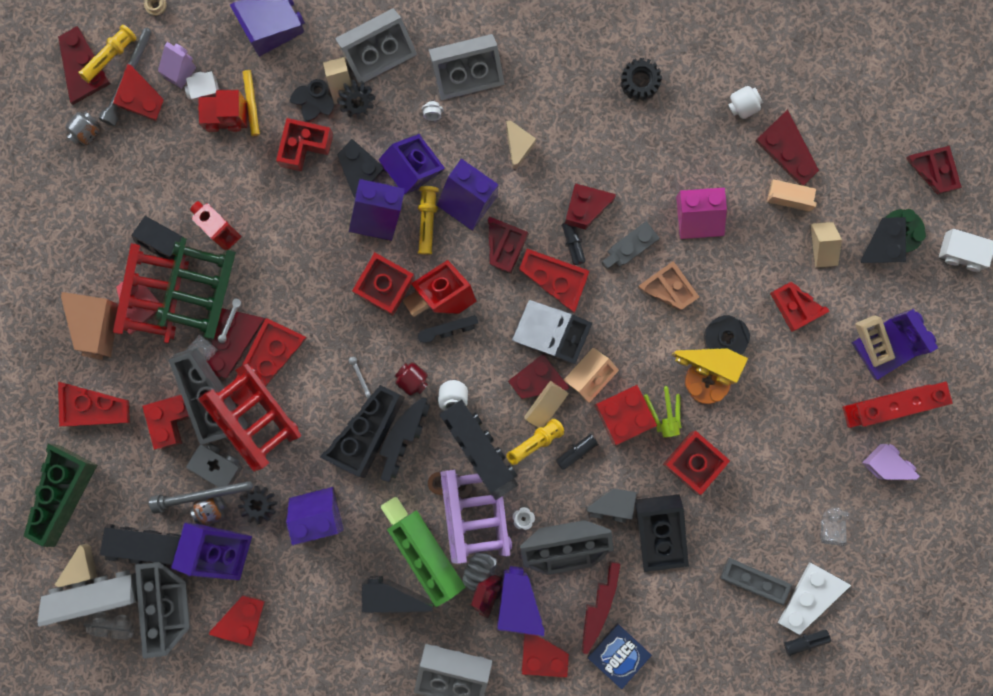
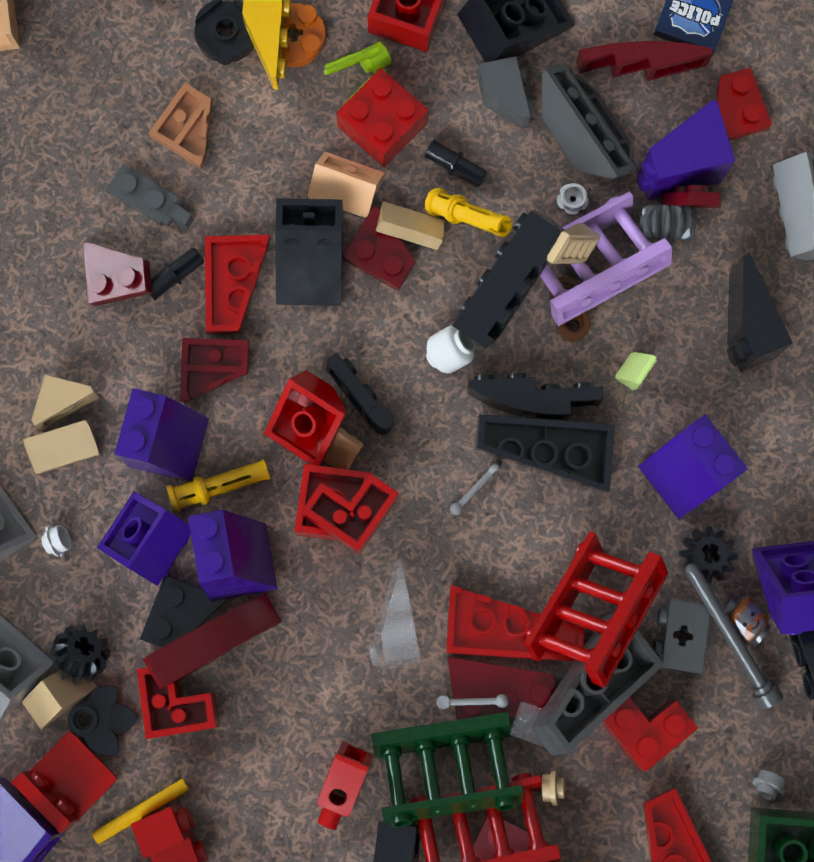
camera: 110 degrees left, 5 degrees down
(104, 480) = (769, 785): none -> light grey plate
(159, 349) = (553, 788): none -> tan plate
(284, 64) = (65, 782): none -> red bracket
(285, 289) = (395, 631): none -> clear slope
(329, 179) = (211, 641): none -> dark red slope
(361, 287) = (351, 521): none -> red brick
(411, 379) = (449, 415): dark red head -> none
(426, 558) = (681, 298): bright green brick -> none
(483, 499) = (574, 245): none -> tan slope
(489, 135) = (62, 446): none -> tan slope
(701, 213) = (67, 121): dark pink slope -> none

